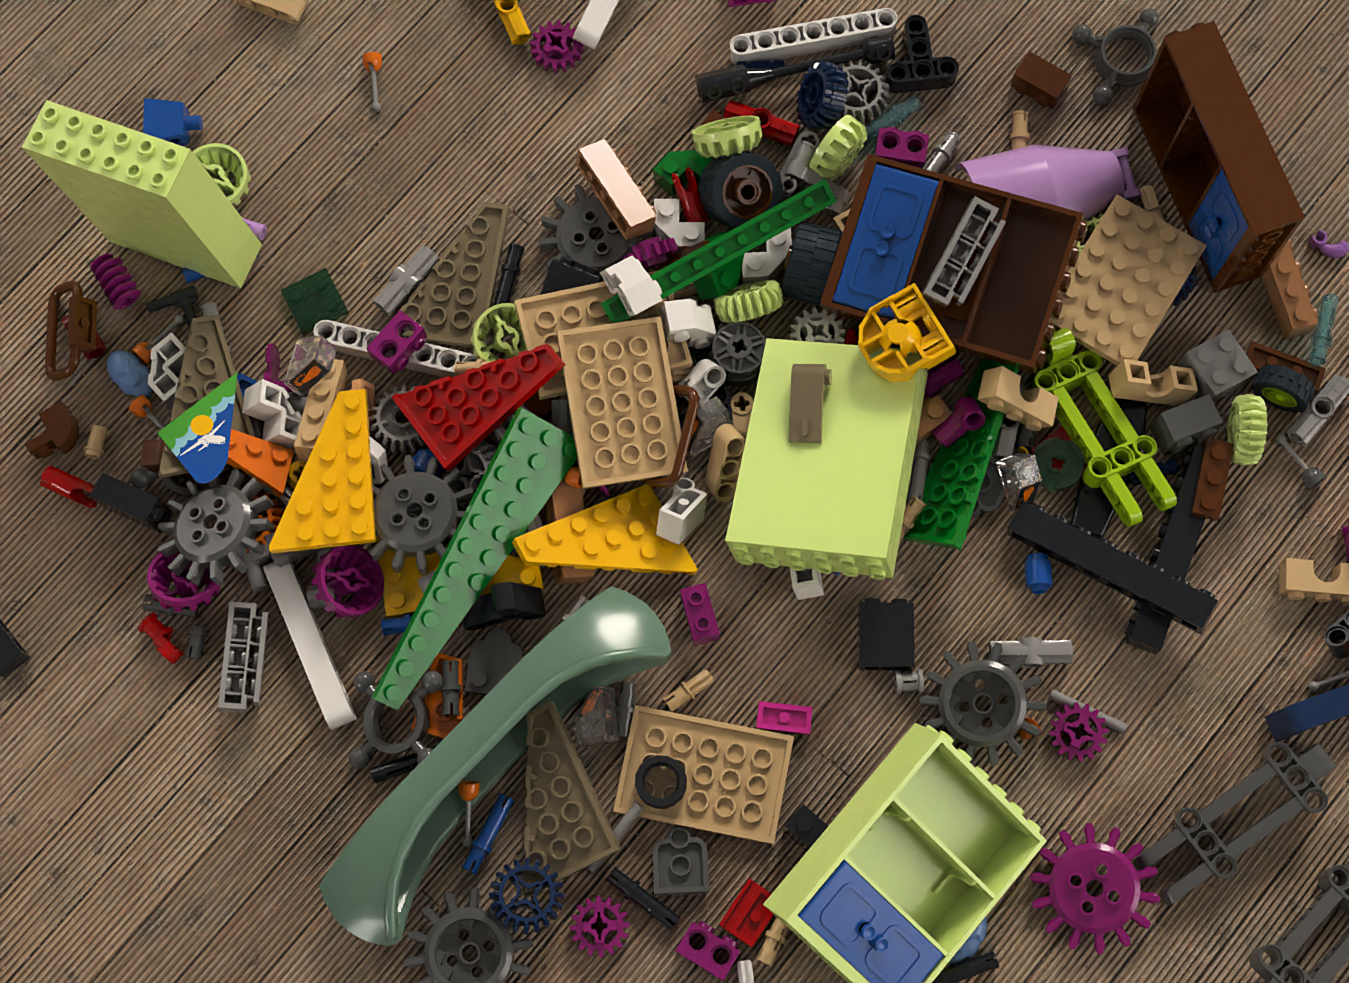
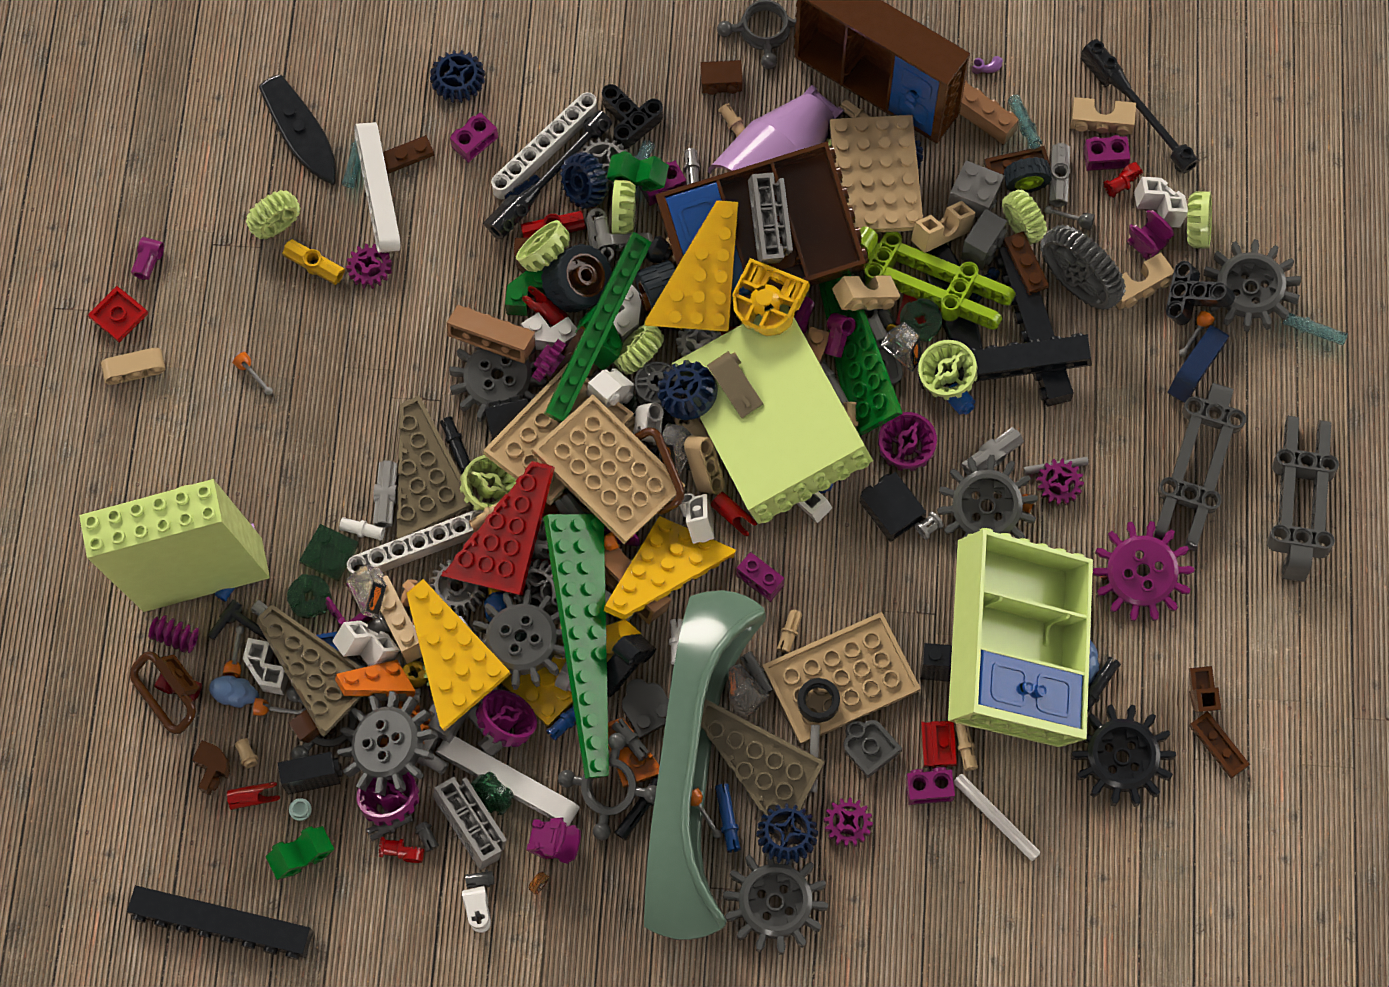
camera: 40 degrees left, 5 degrees down
(62, 573) = (290, 857): none -> green brick
(103, 531) = (300, 809): none -> light aqua plate
(169, 121) = (123, 492): blue torso -> none
(188, 744) = (477, 905): none -> white piece
(203, 433) = (331, 685): sticker -> none
(212, 720) = (480, 879): none -> dark grey pin
(261, 317) = (303, 585): none -> clear green plate
(262, 764) = (538, 882): none -> clear orange tile
(280, 645) = (493, 793): none -> clear green plate
(304, 733) = (554, 840): none -> magenta piece
(360, 299) = (362, 528): none -> white pin
(391, 339) = (414, 536): magenta brick -> none
(632, 285) = (558, 384): white brick -> none
(642, 898) = (861, 785): black pin -> none
(718, 519) = (731, 512): none -> red piece
(767, 383) = (691, 402): none -> dark blue gear
(784, 718) = (866, 605): dark pink plate -> none
(837, 214) = (658, 250): none -> black cone
(854, 273) = (702, 283): none -> yellow wing
(887, 127) = (648, 173): none -> green brick
(966, 566) = (907, 426): none -> magenta gear
(1040, 516) = (947, 355): none -> yellowish green gear
(1267, 525) = (1082, 267): none -> dark grey gear

